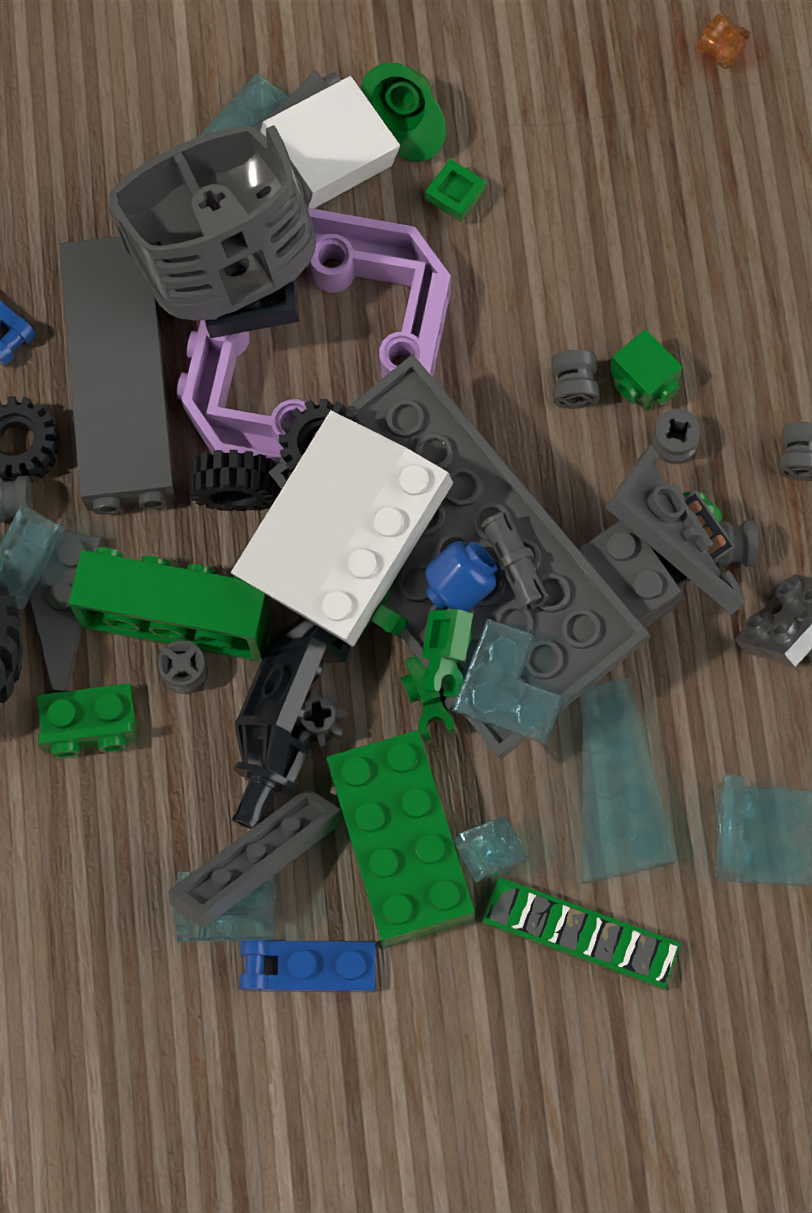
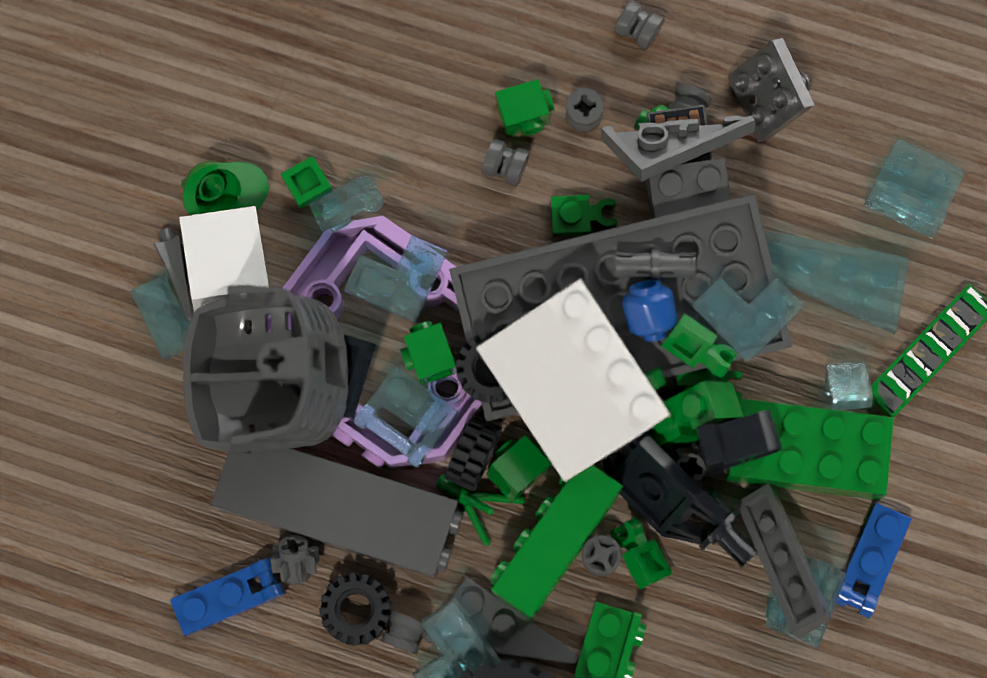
camera: 65 degrees left, 5 degrees up
(41, 354) = (294, 559): none -> dark grey gear
(176, 513) = (470, 499): none -> green plant
(197, 712) = (642, 557): none -> green plate
(233, 531) = (518, 467): none -> green brick
(253, 393) = (413, 406): none -> clear light blue plate
(315, 376) = (428, 353): none -> green brick
(358, 739) = (738, 441): none -> black tile
(375, 326) = (402, 289): none -> clear light blue plate
(378, 691) = (698, 406): none -> green brick
(454, 238) = (337, 207): none -> clear light blue plate
(555, 480) = (574, 215): none -> green plate

